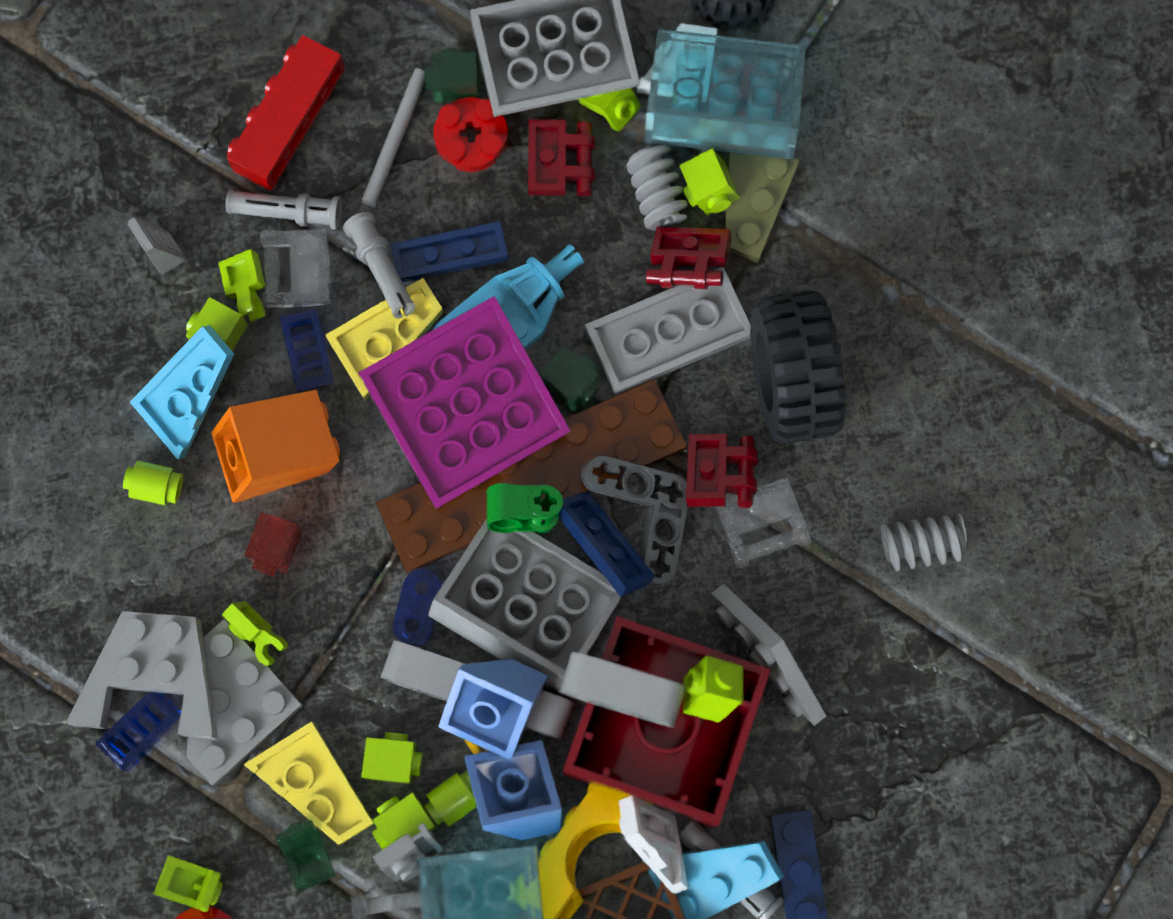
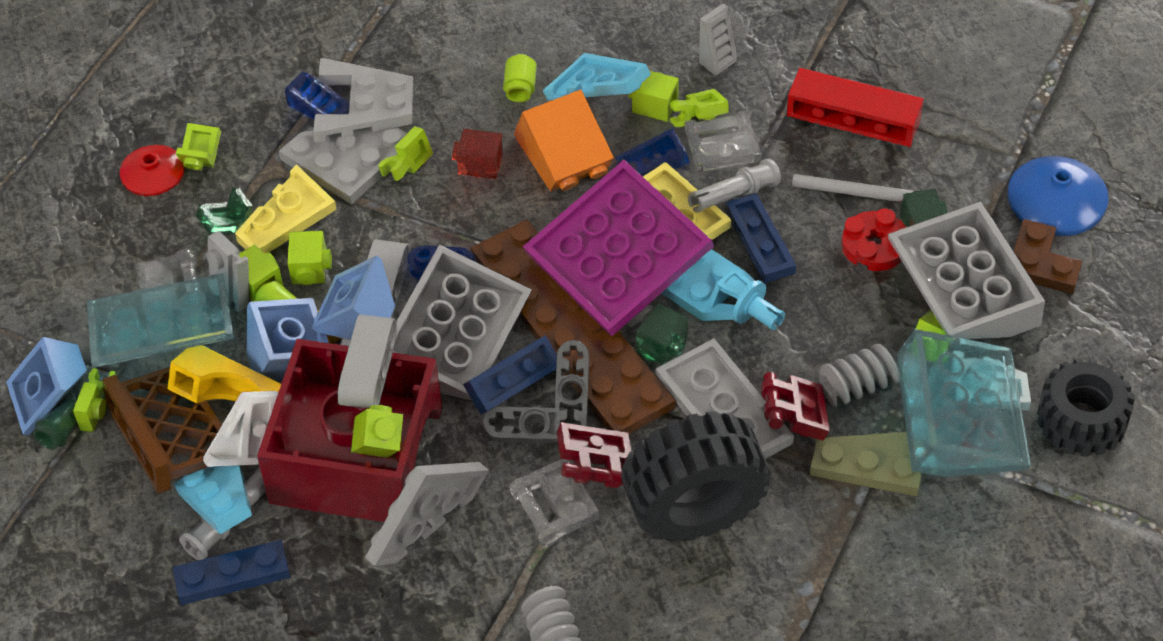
camera: 85 degrees right, 25 degrees down
(301, 209) = (771, 98): light grey pin -> none
(519, 508) = (530, 303): green piece -> none
(548, 158) = (866, 295): dark red plate -> none
(708, 183) = (873, 412): lime brick -> none

